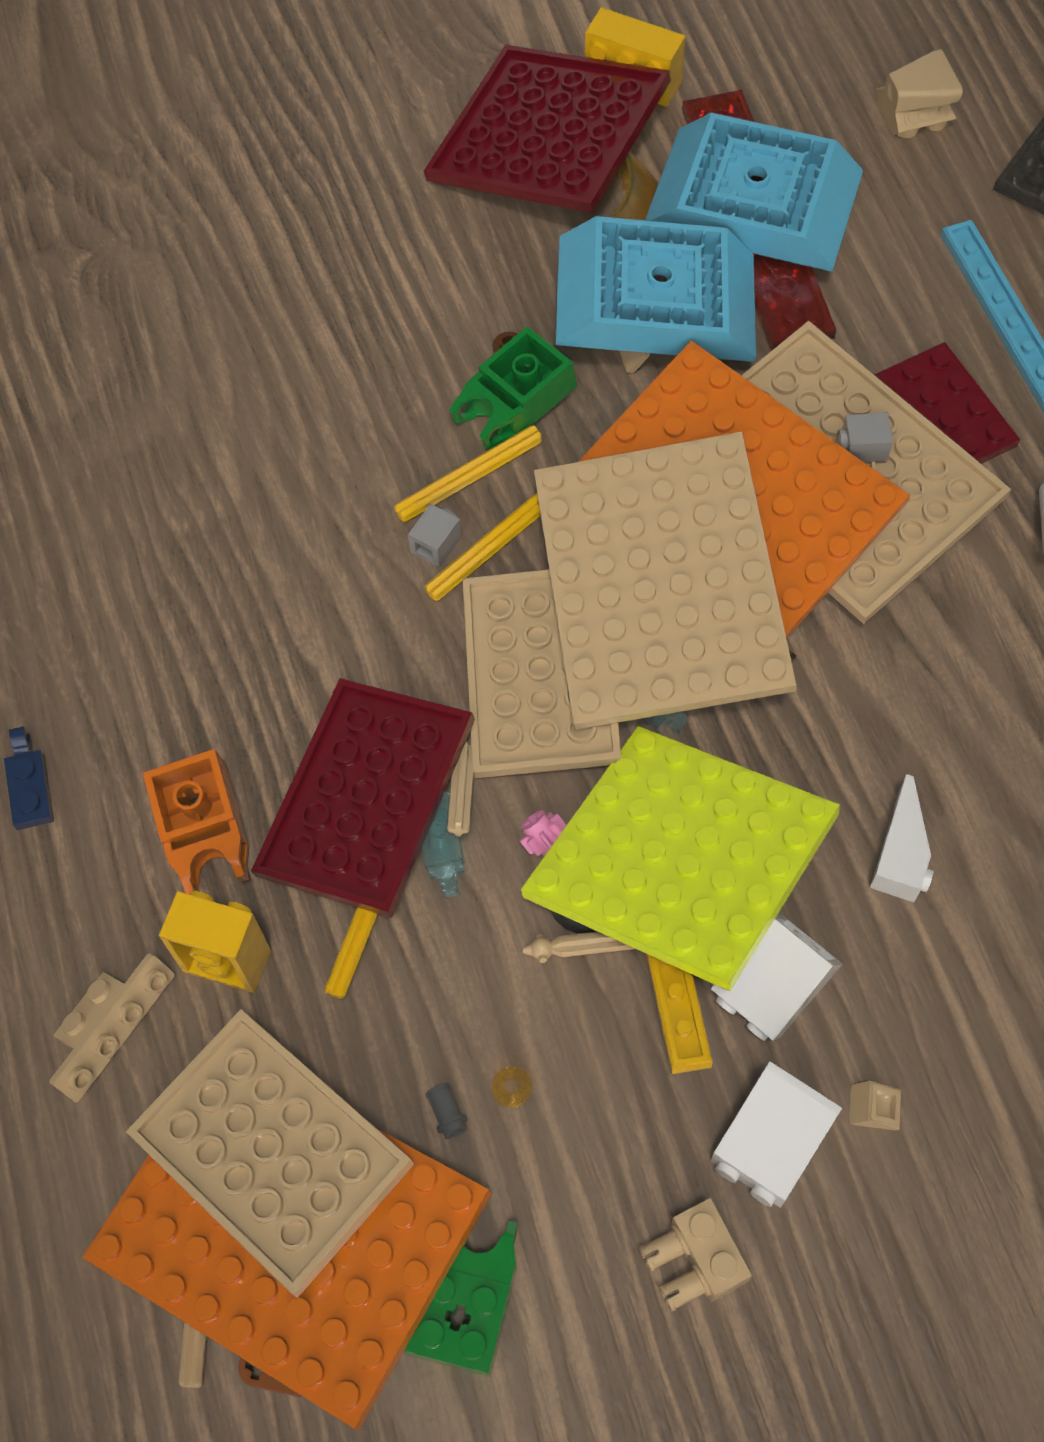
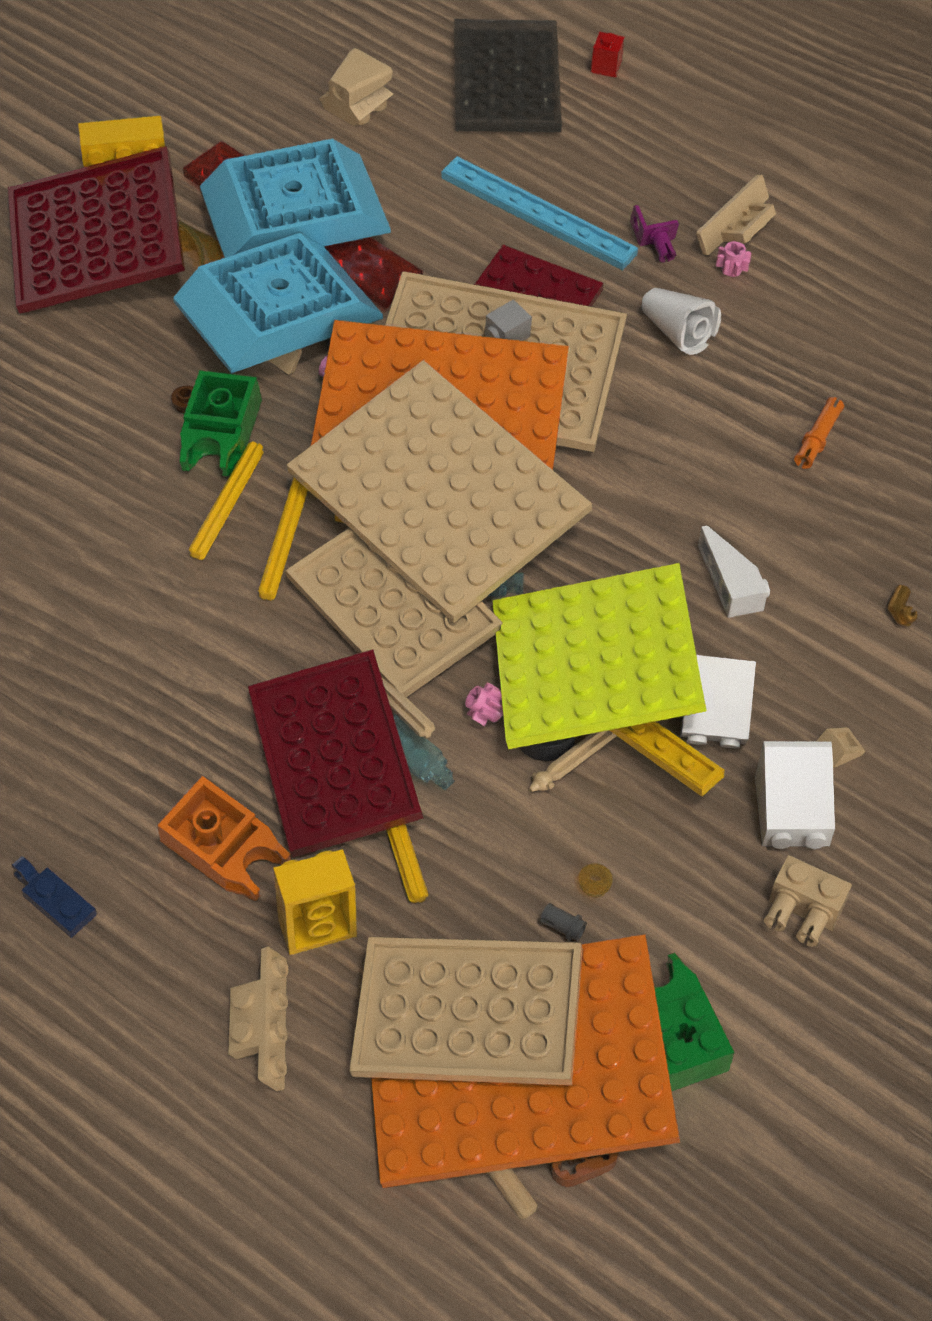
camera: 40 degrees left, 10 degrees down
(435, 535) = (239, 552): light grey brick -> none

